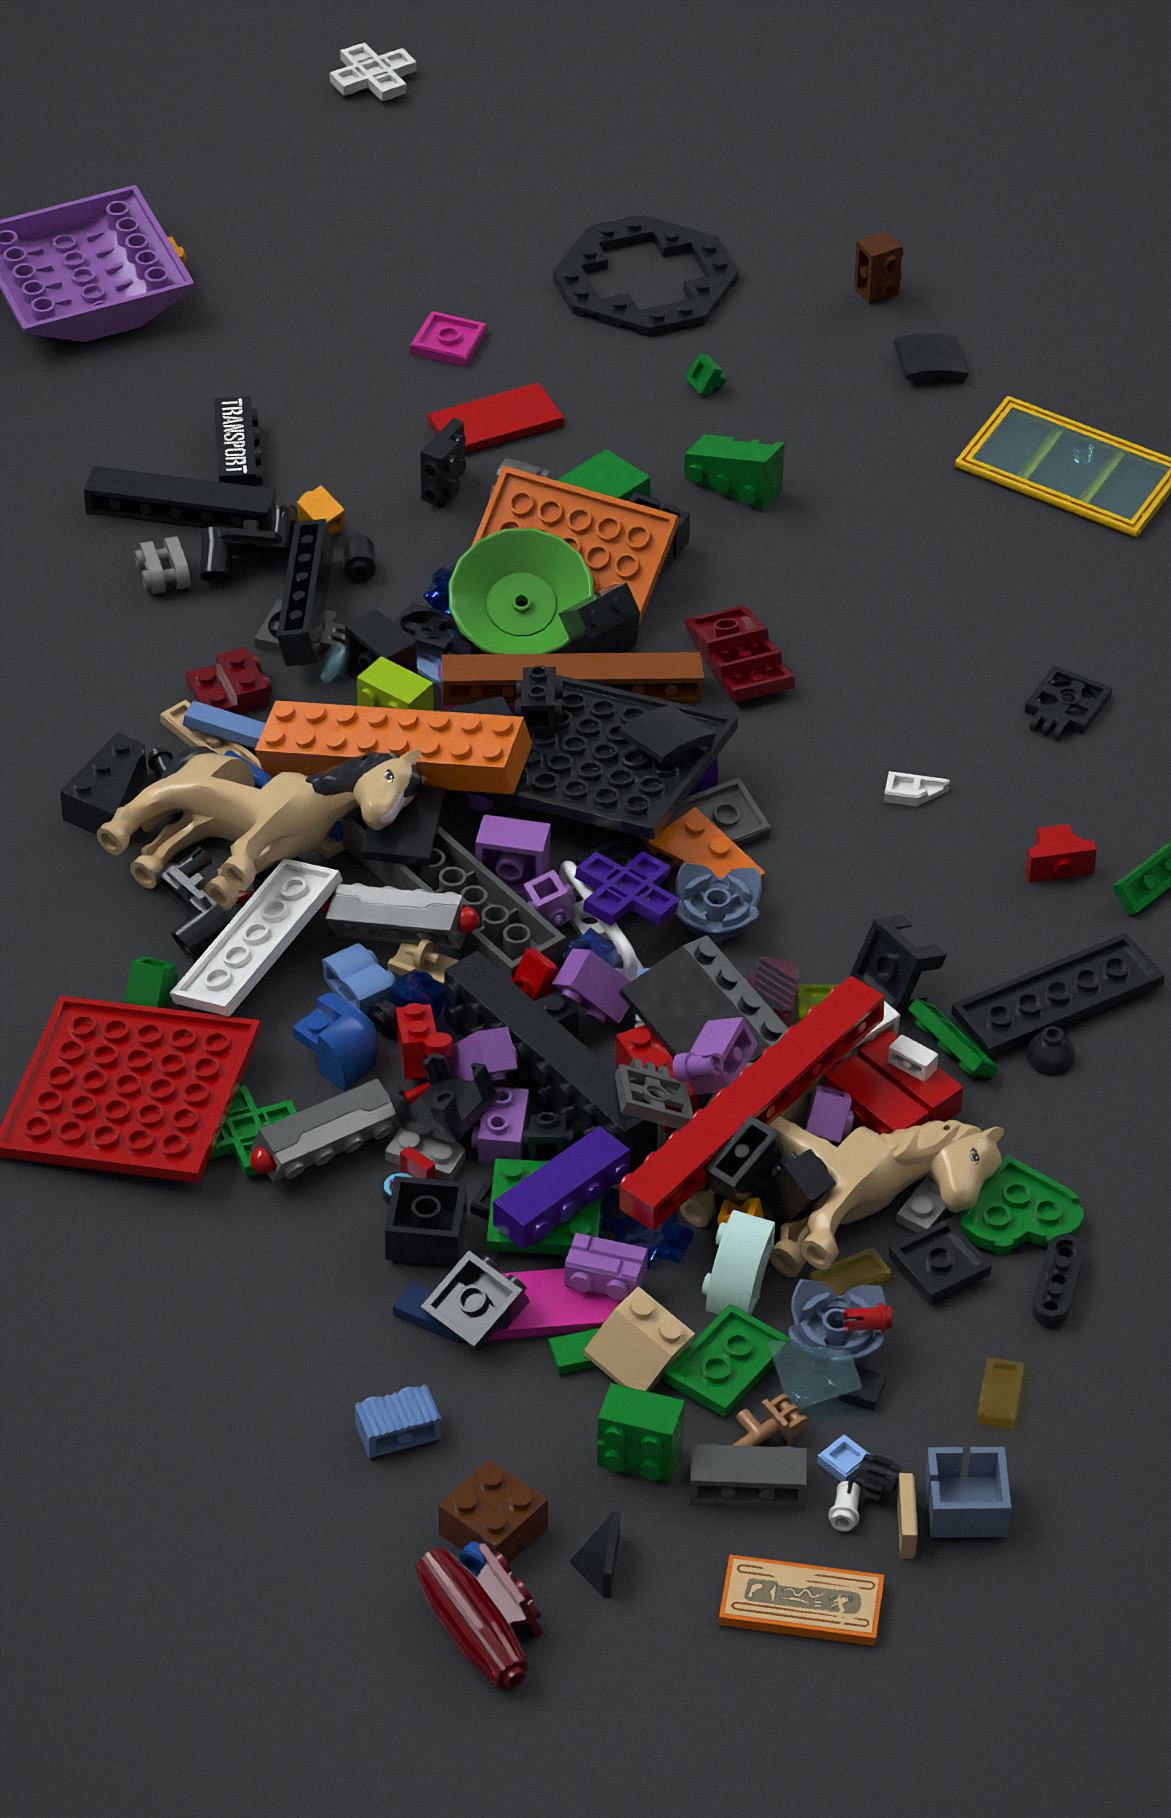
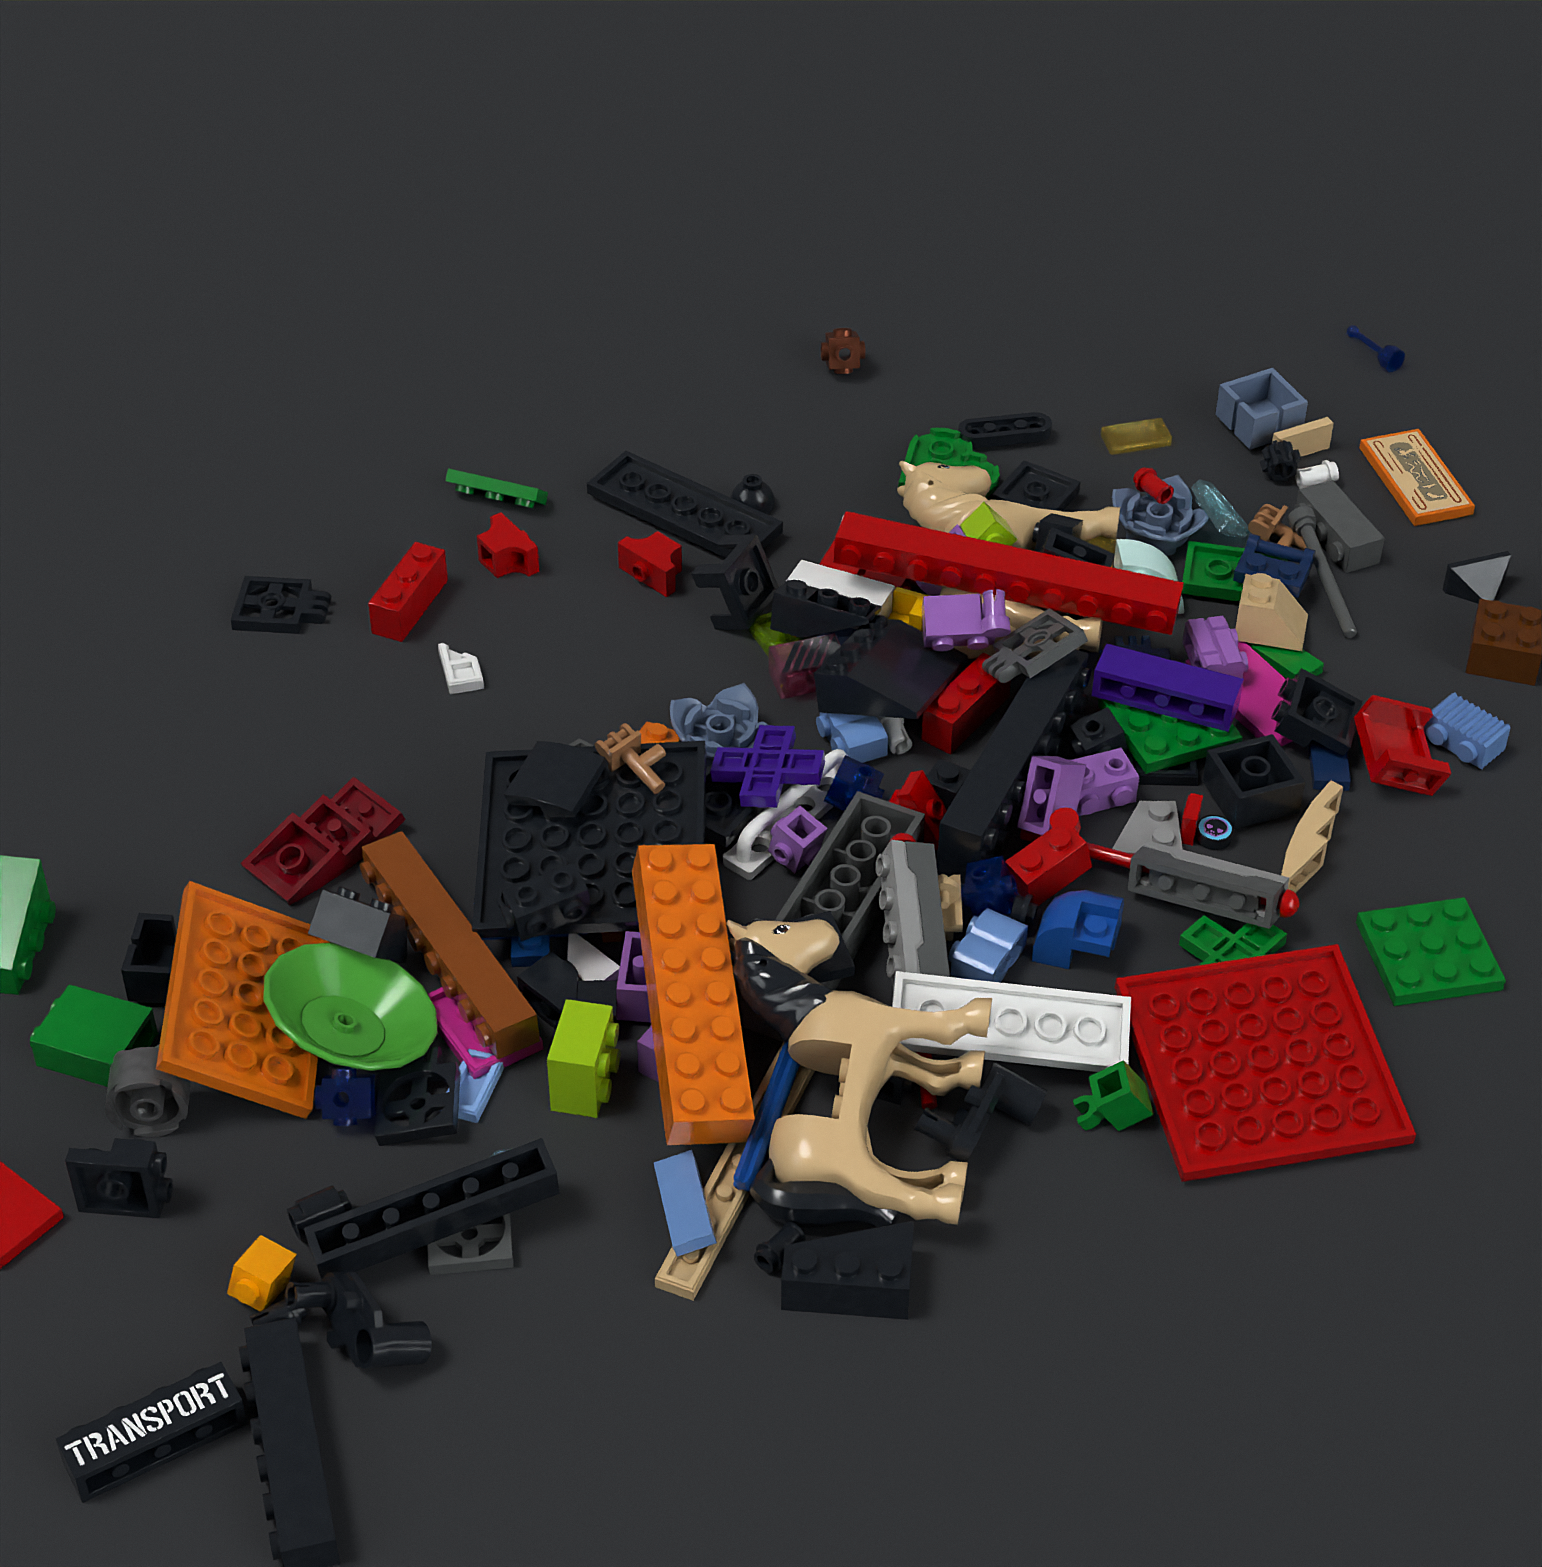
camera: 115 degrees left, 0 degrees up
(153, 575) = (427, 1403): light grey brick -> none
(170, 1267) = (1430, 951): none -> green plate
(231, 683) = (606, 1248): dark red plate -> none
(335, 1230) = (1310, 839): none -> tan slope
(374, 637) = (508, 1098): black brick -> none
(398, 1345) = (1397, 745): none -> red panel
(448, 1104) = (1120, 804): black panel -> none
(514, 850) = (756, 874): medium lavender brick -> none
(593, 985) = (901, 753): medium lavender brick -> none
(640, 1433) = (1367, 576): green piece -> none
(669, 767) = (624, 748): none -> medium nougat arm
(700, 1368) = (1289, 573): none -> dark blue plate
(754, 1432) = (1304, 523): none -> dark grey piece
(794, 1006) = (814, 611): none -> black slope
(823, 1116) = (988, 526): none -> lime brick
(842, 1458) = (1269, 492): light blue tile -> none
(952, 1039) = (795, 535): green plate -> none
(981, 943) = (652, 561): none -> red brick
(1023, 1683) = (1390, 352): none -> clear blue hinge
(1025, 773) = (408, 591): none -> red brick

